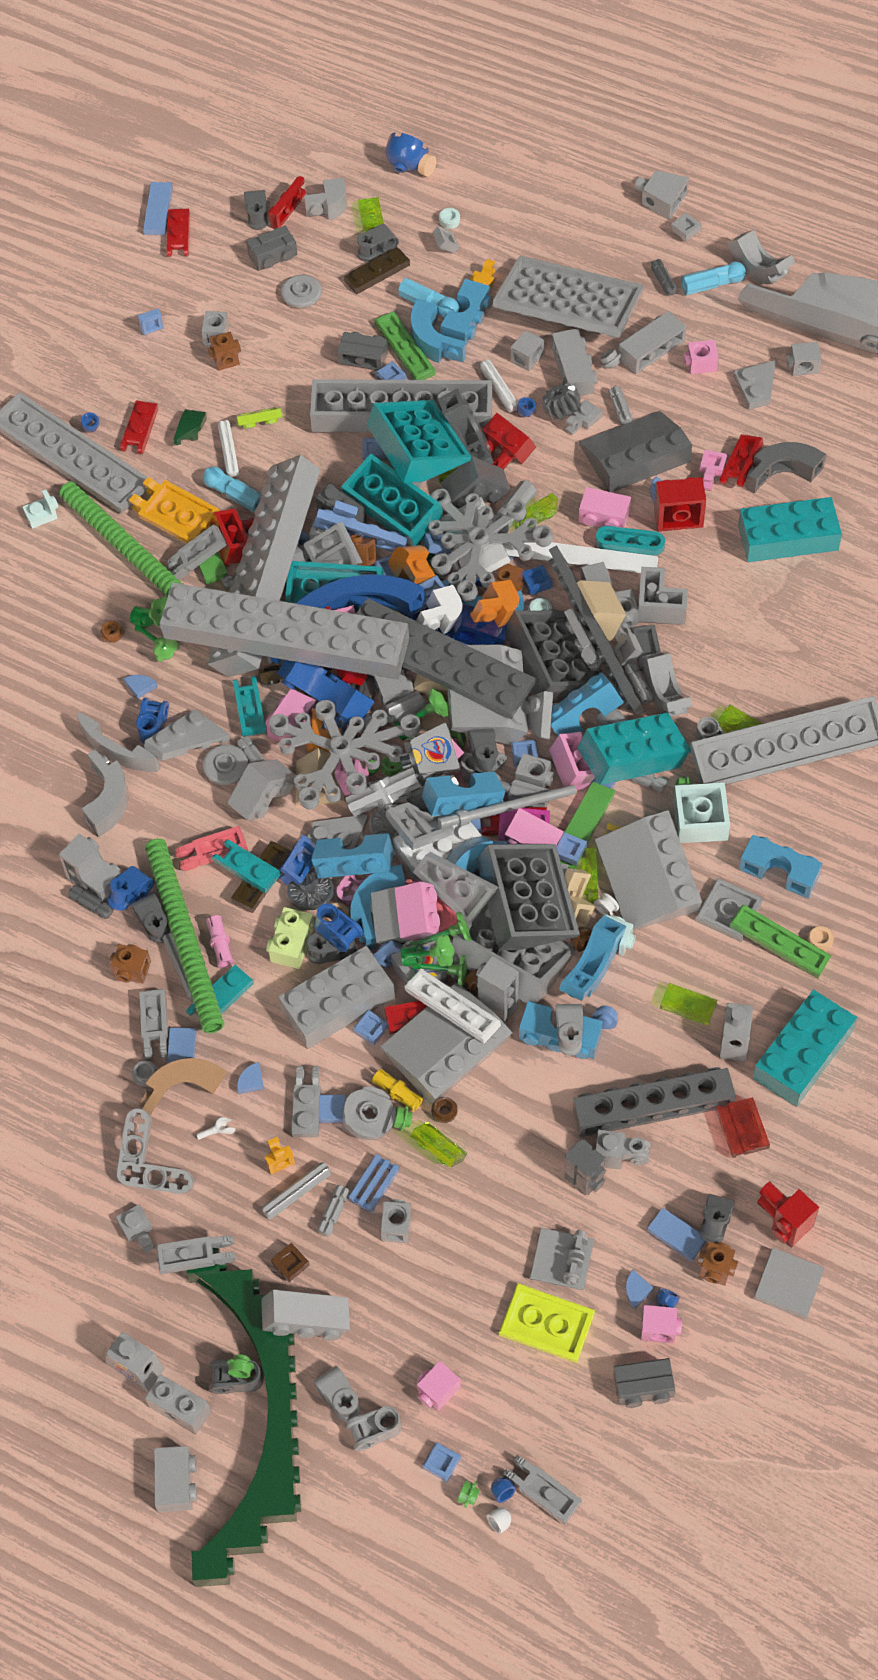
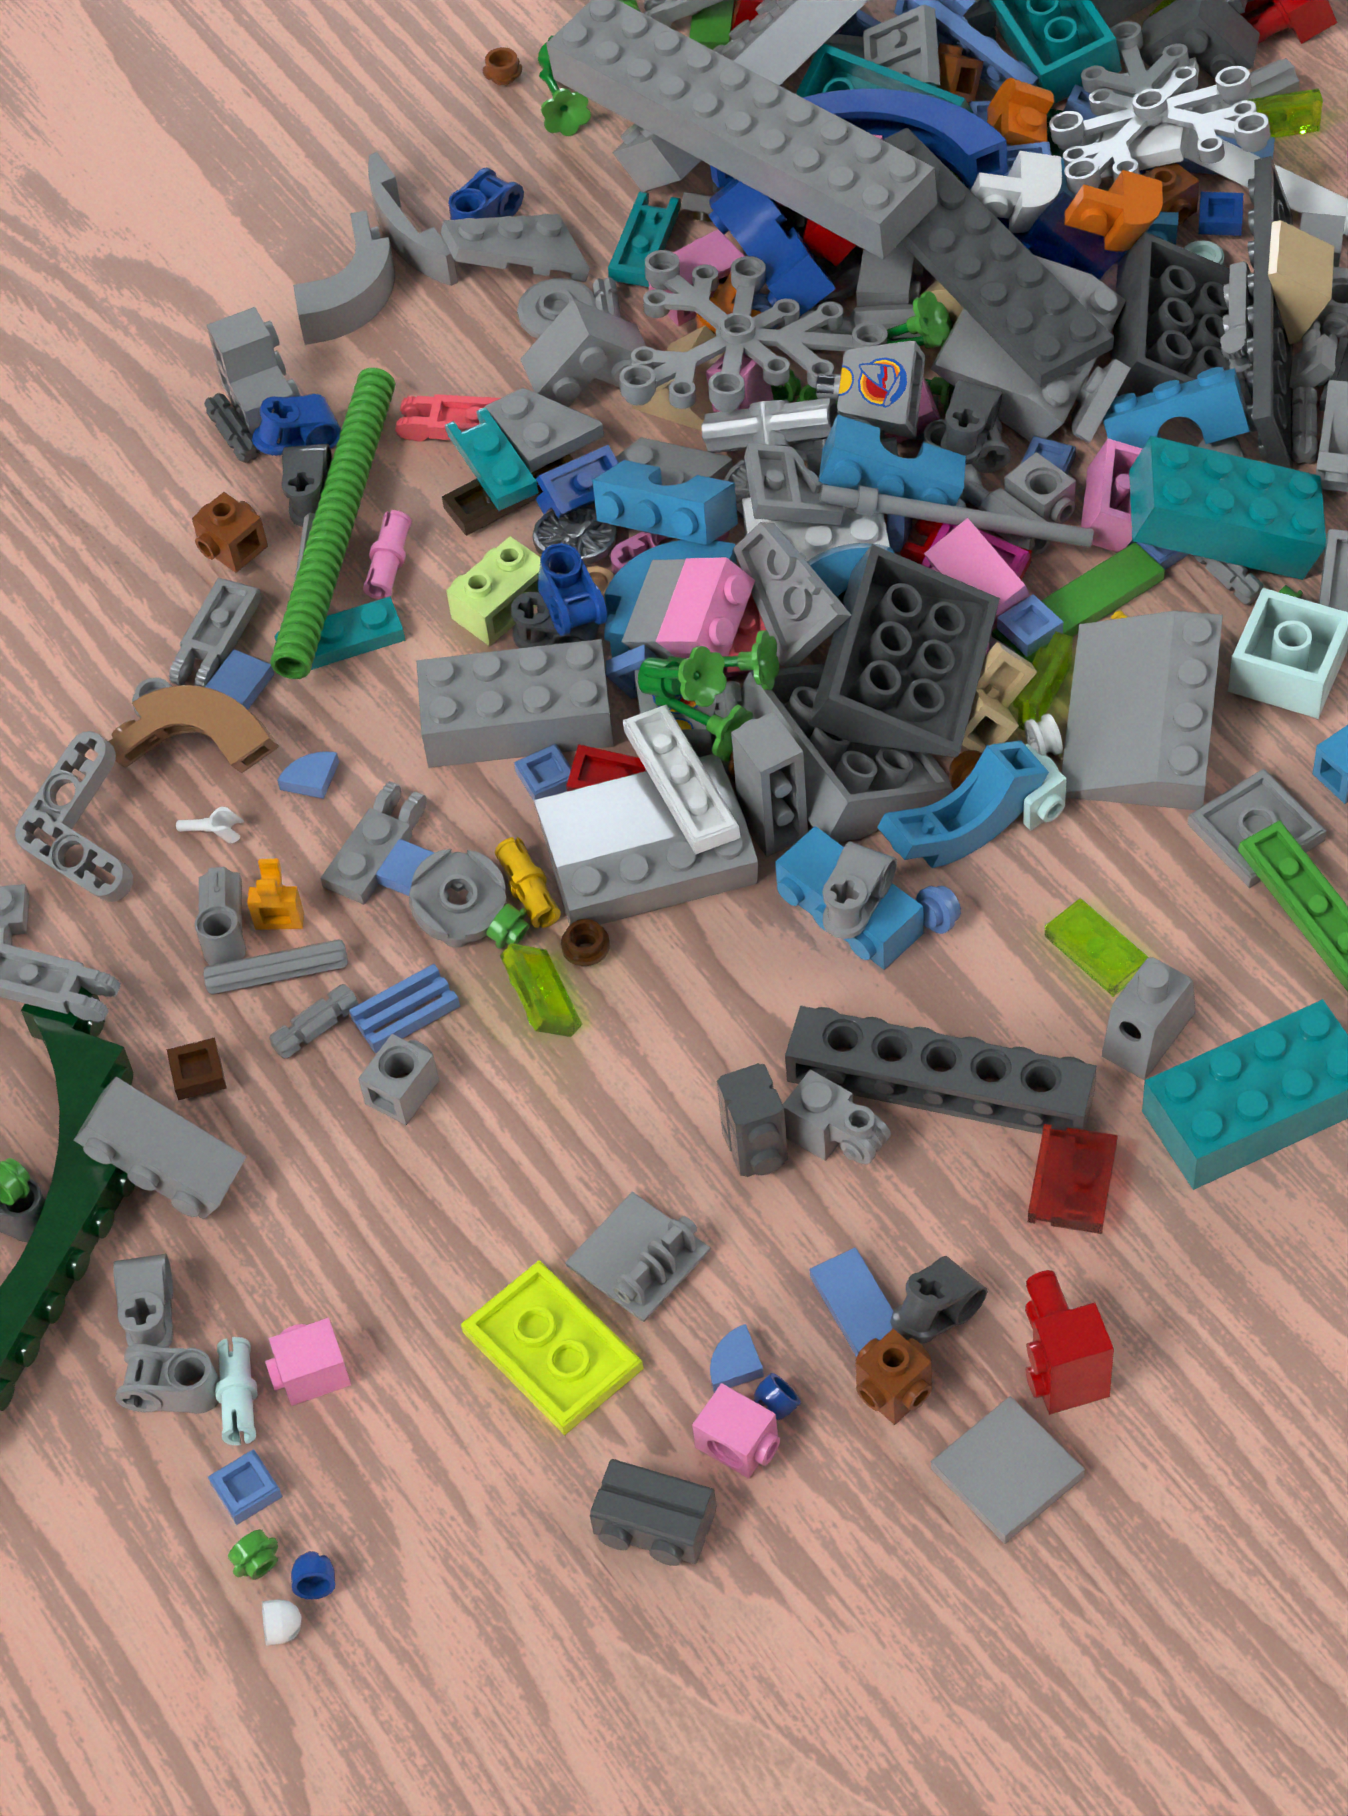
camera: 30 degrees right, 5 degrees down
(140, 684) = (500, 154): medium blue tile -> none
(253, 1176) = (220, 916): none -> light grey piece
(262, 837) = (542, 427): none -> light grey wing
(411, 1417) = (236, 1391): none -> light aqua pin
(544, 1490) = (381, 1613): light grey hinge -> none

